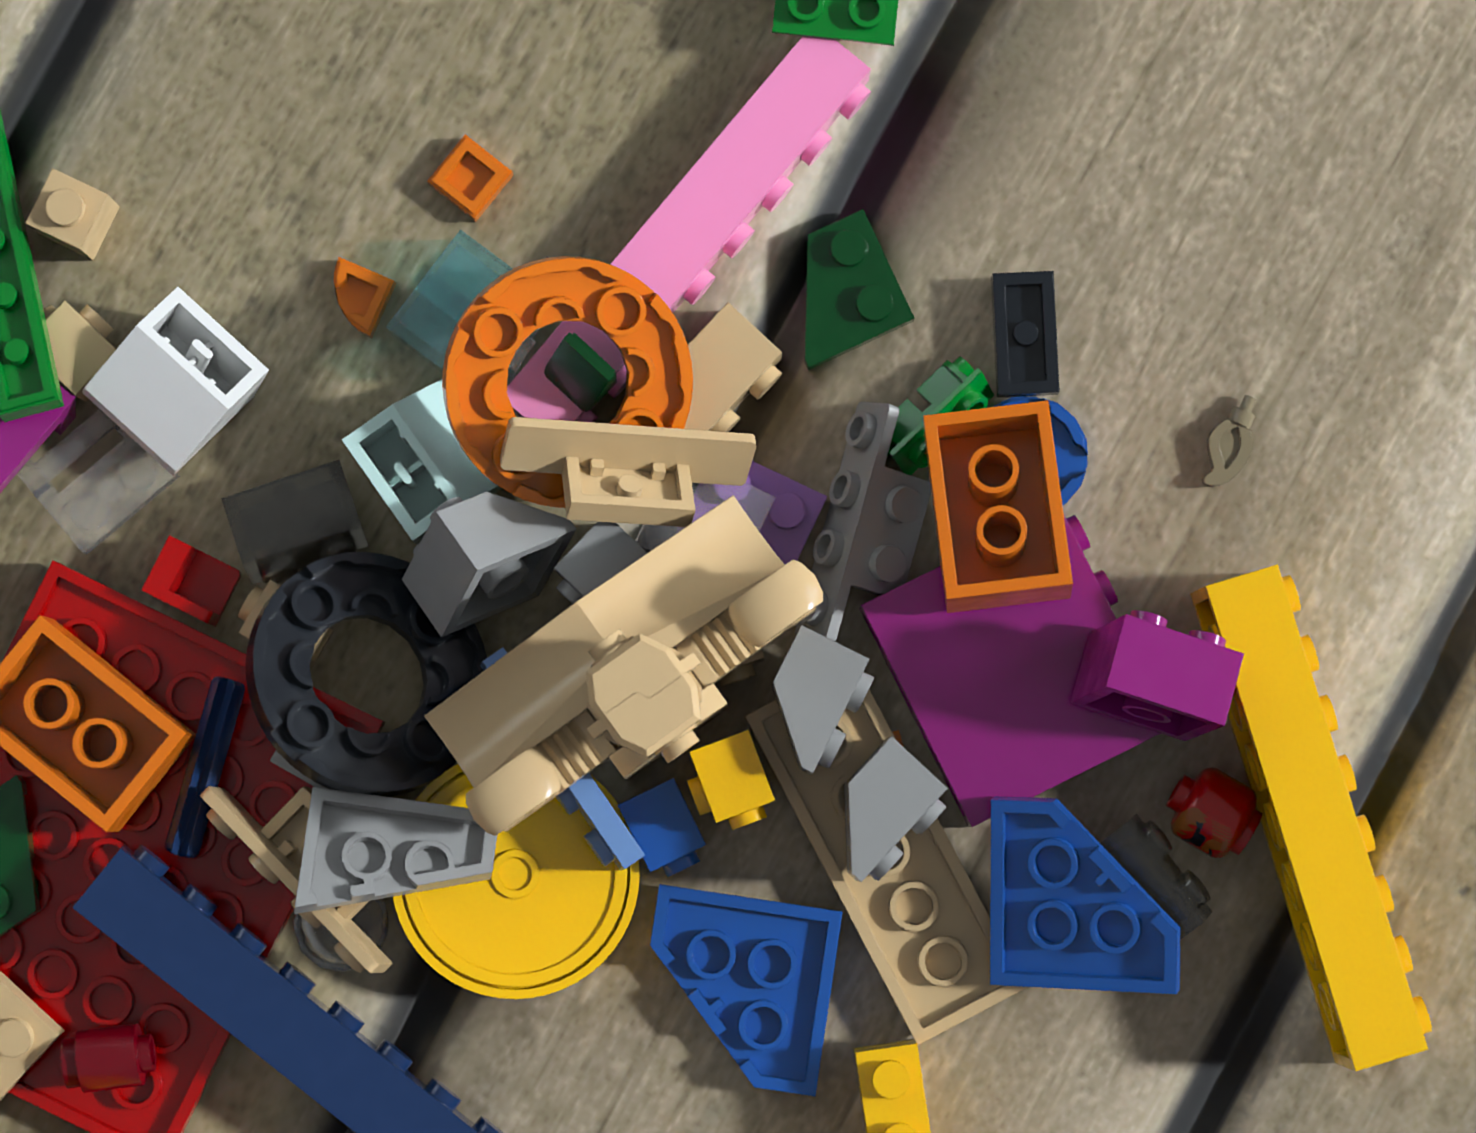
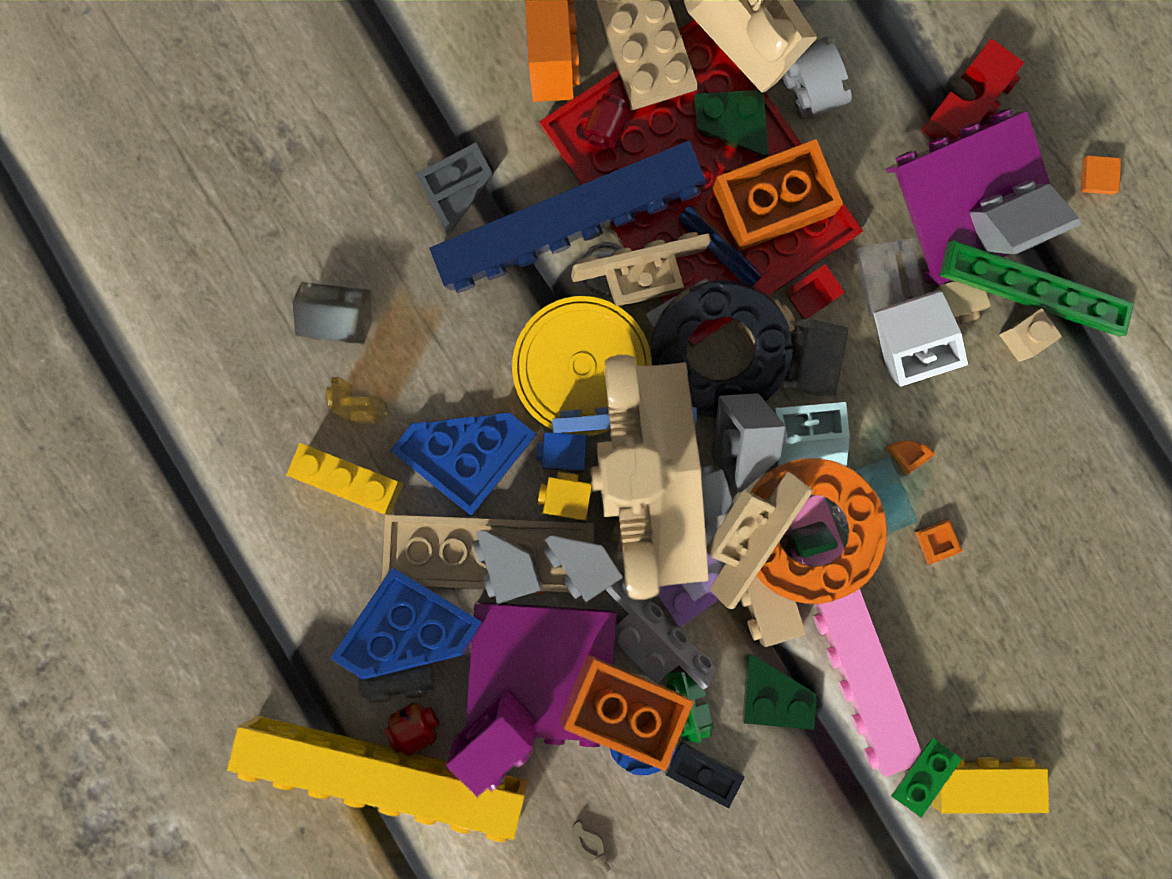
camera: 120 degrees right, 0 degrees up
(386, 848) = (631, 306): light grey wing -> none

